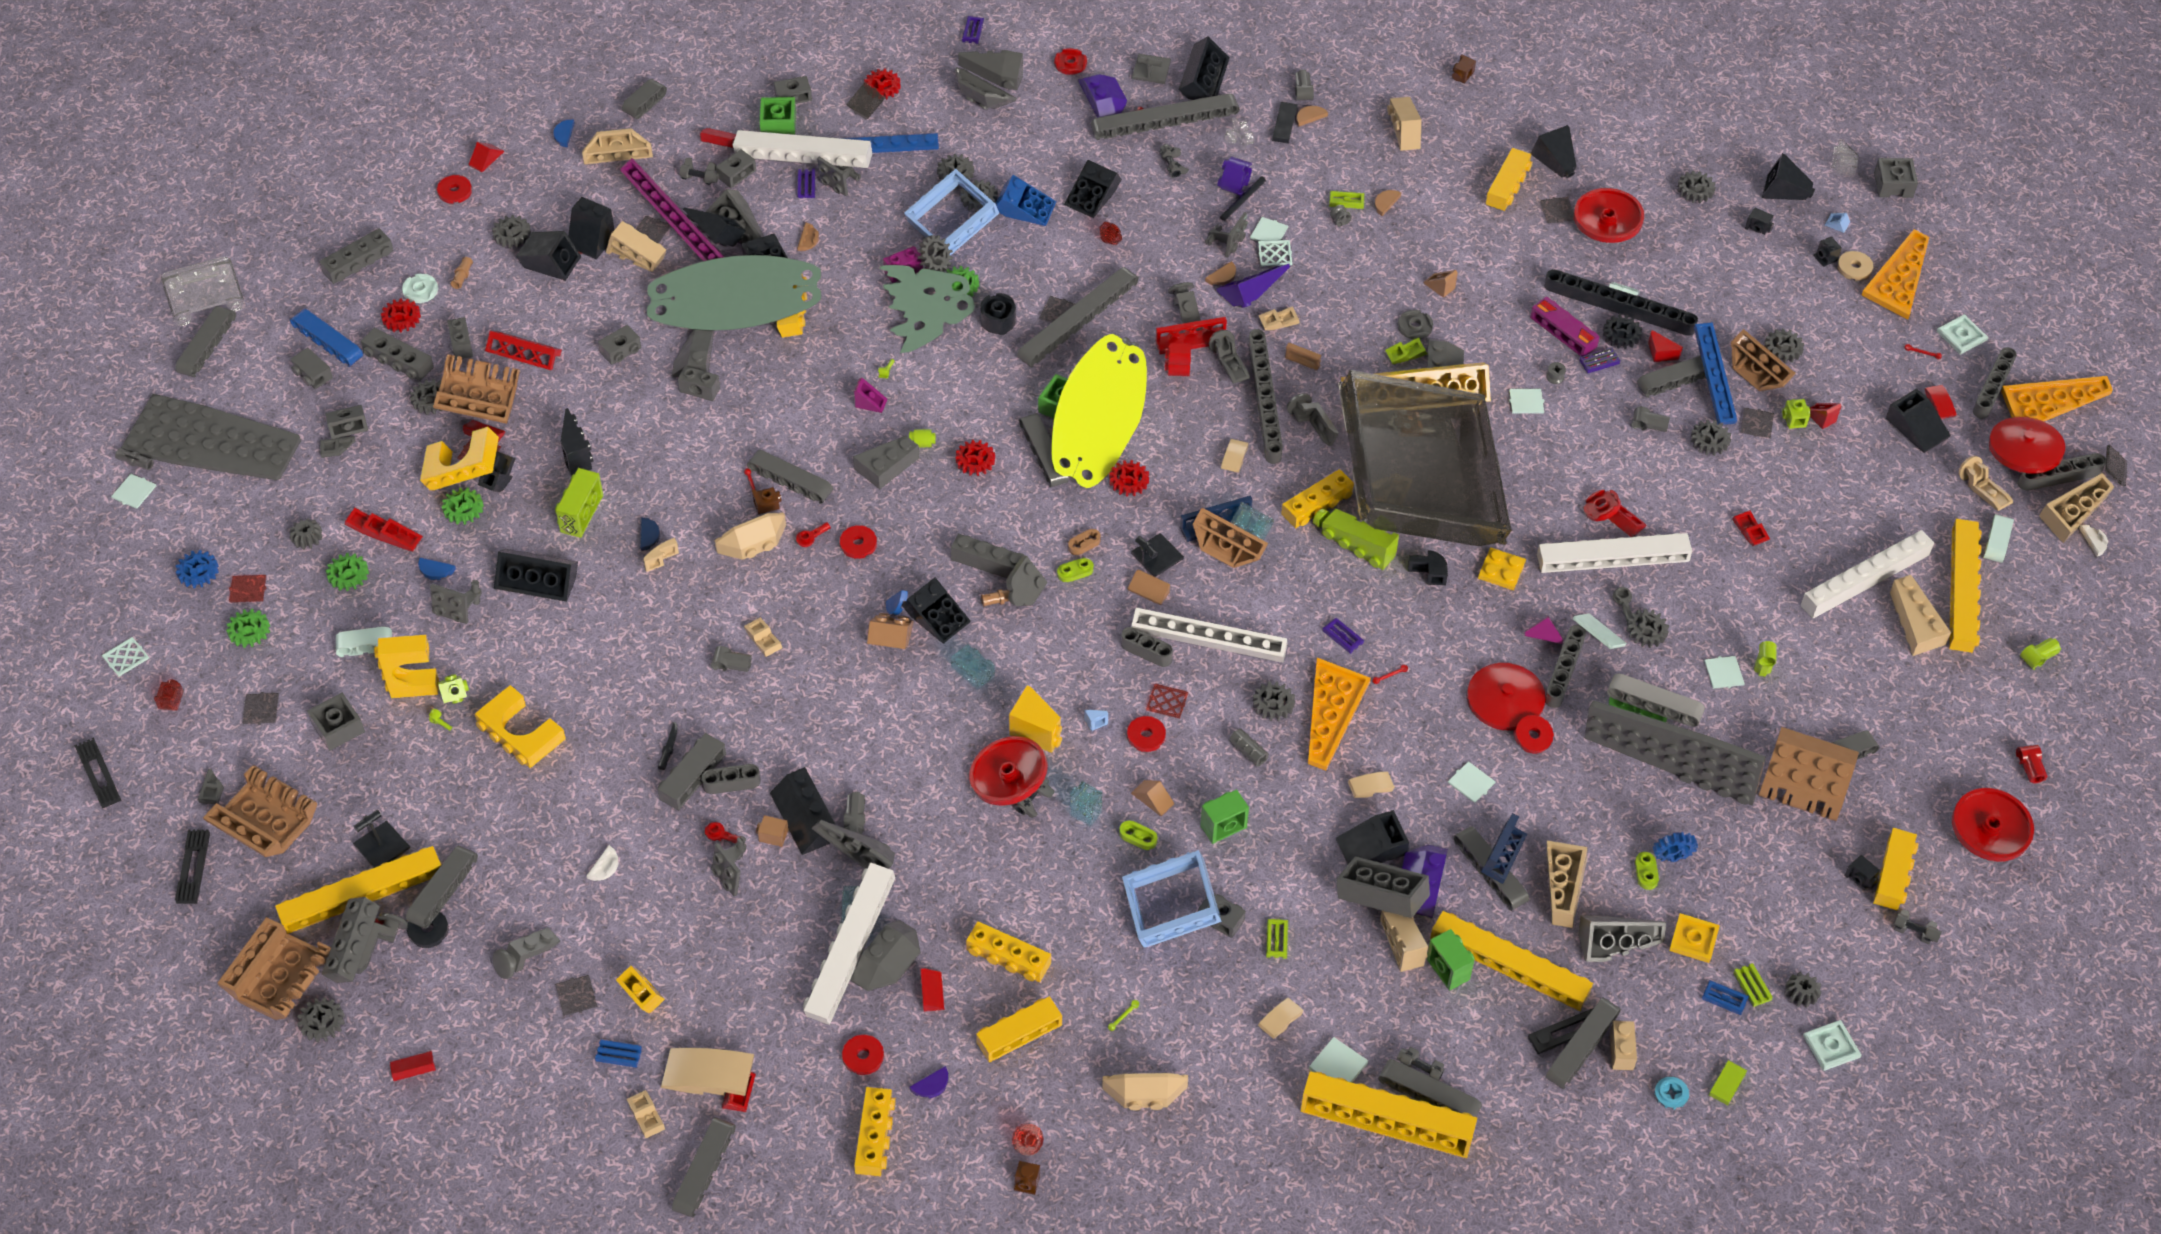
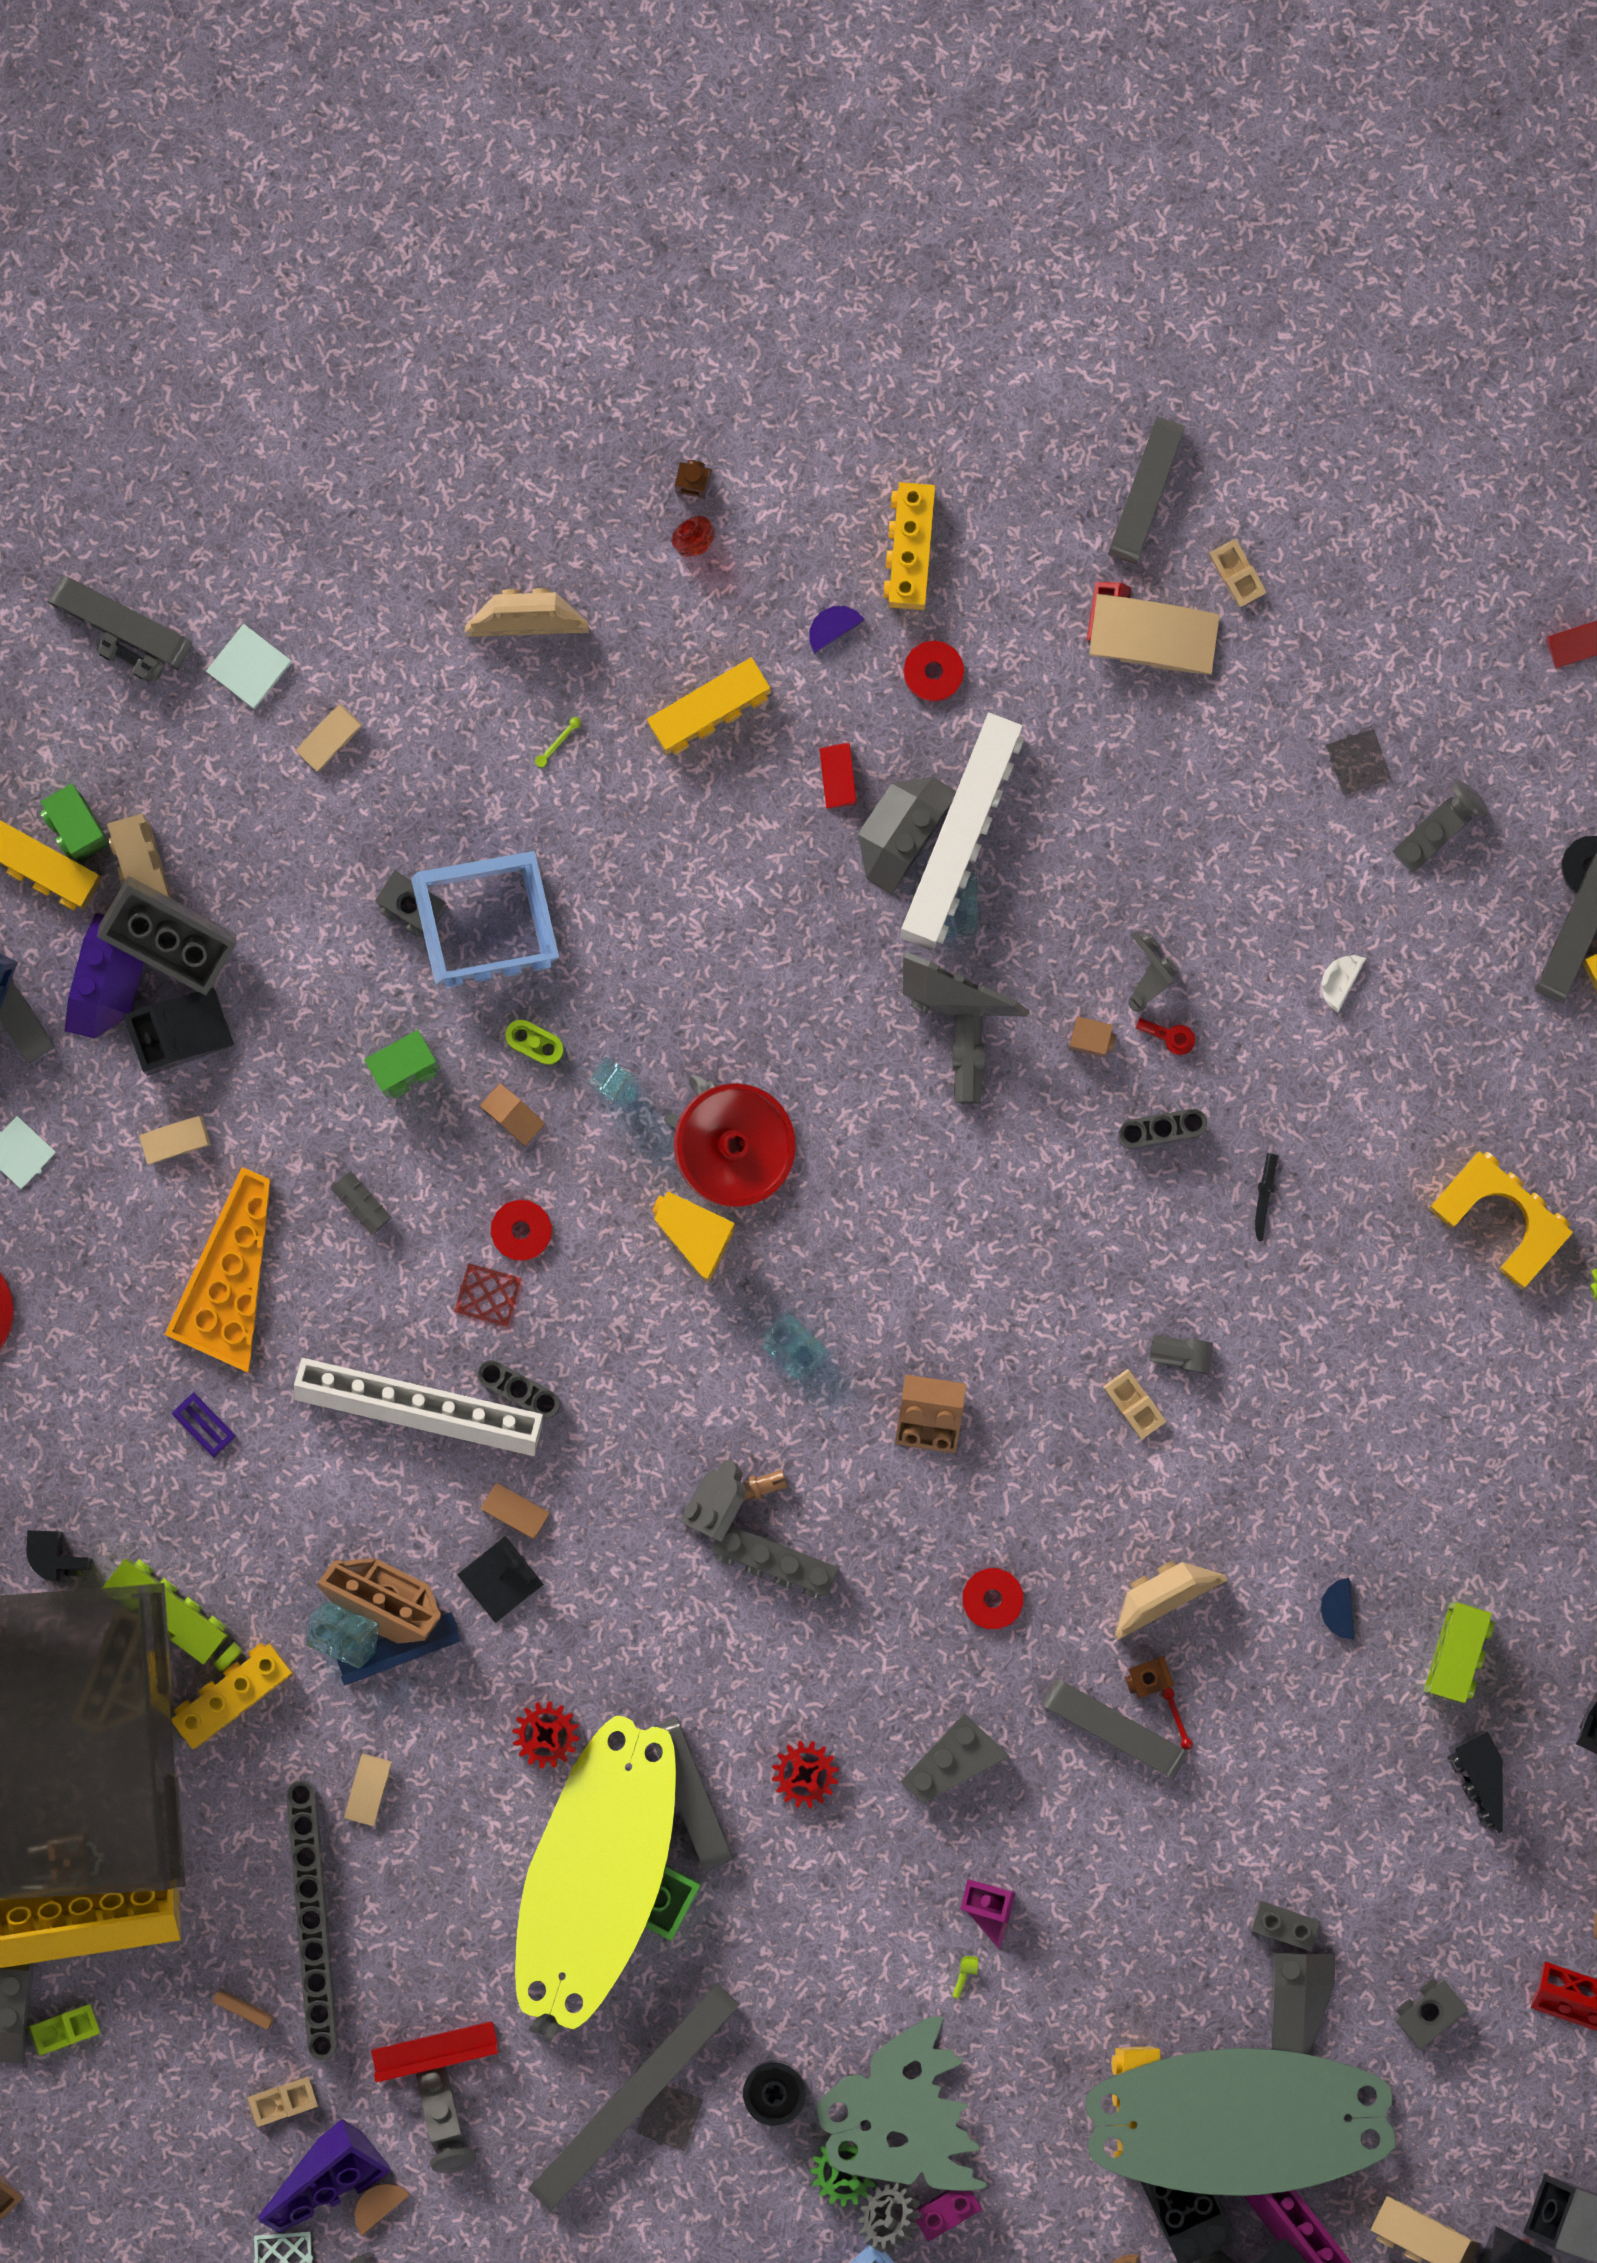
camera: 175 degrees left, 30 degrees up
(535, 574) = (1514, 1517): black slope -> none
(618, 1061) = (1285, 666): blue tile -> none
(640, 989) = (1264, 758): yellow brick -> none
(655, 557) = (1319, 1553): tan slope -> none
(688, 774) = (1224, 1137): dark grey brick -> none
(802, 808) = (1045, 1072): black slope -> none
(806, 538) = (1078, 1603): red plate -> none
(894, 604) = (924, 1461): blue tile -> none
(923, 437) = (896, 1814): lime brick -> none
(936, 611) = (859, 1455): black slope -> none
(1008, 952) = (727, 835): yellow brick -> none
(1075, 570) = (635, 1547): lime plate -> none
(1084, 542) = (616, 1597): medium nougat beam -> none
(1095, 718) = (599, 1253): light blue slope -> none
(1179, 359) = (459, 1986): red brick -> none
(1223, 344) = (370, 1999): dark grey piece -> none
(1273, 701) = (306, 1297): dark grey gear -> none
(1276, 954) = (328, 897): lime tile -> none
(1313, 412) = (223, 1870): dark grey piece -> none
(1388, 1114) = (181, 574): yellow brick -> none
(1404, 668) = (110, 1364): red hinge -> none
(1415, 332) = (62, 2095): dark grey tile -> none

